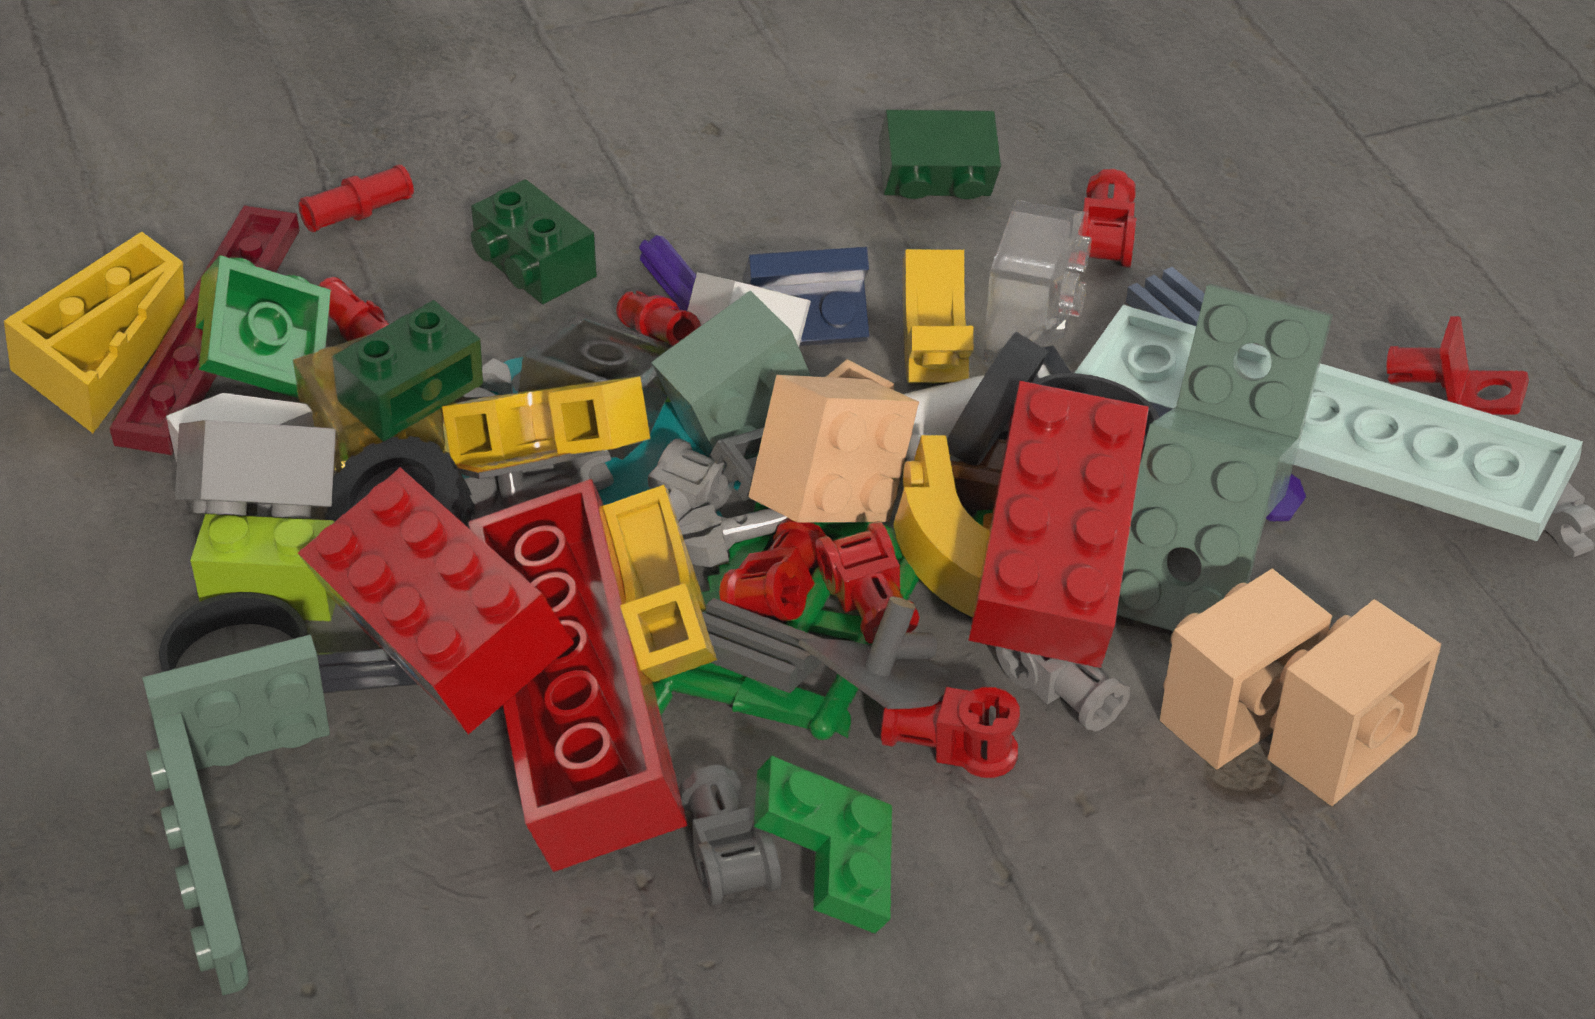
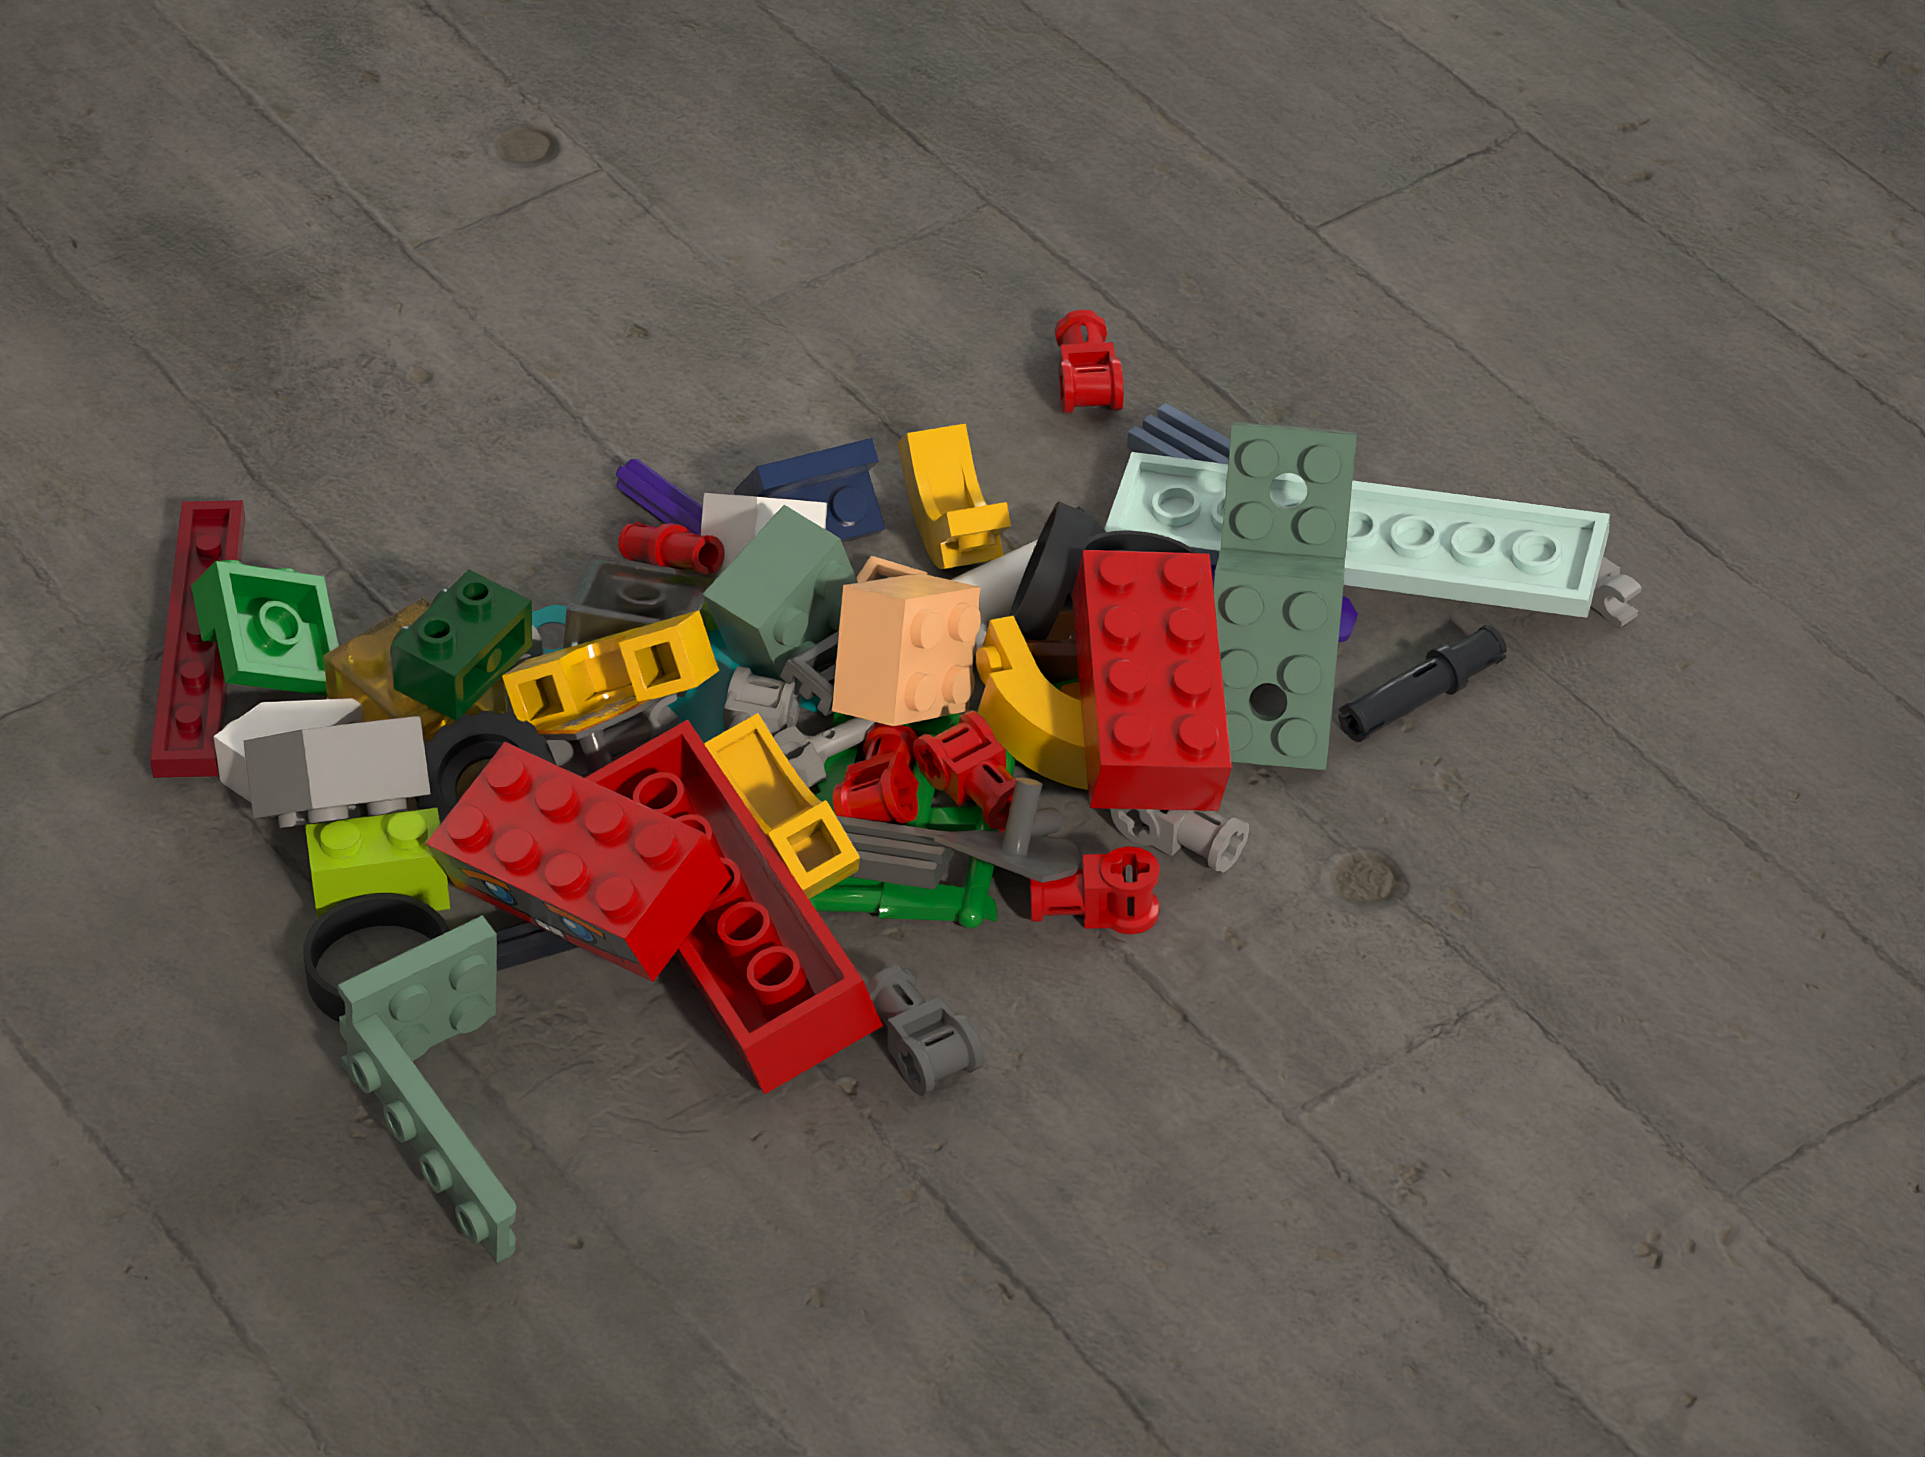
camera: 15 degrees left, 0 degrees up
(97, 328) = (91, 661): yellow wedge -> none
(351, 313) = (353, 601): red pin -> none
(356, 198) = (294, 472): red pin -> none
(533, 241) = (505, 487): dark green brick -> none
(844, 830) = (1028, 1003): green plate -> none
(939, 153) = (896, 322): dark green brick -> none
(1036, 276) = (1043, 439): clear slope -> none
(1230, 664) = (1350, 785): light nougat brick -> none
(1352, 700) = (1456, 797): light nougat brick -> none
(1376, 569) = (1442, 671): none -> black pin
(1450, 368) = (1463, 461): red bracket -> none

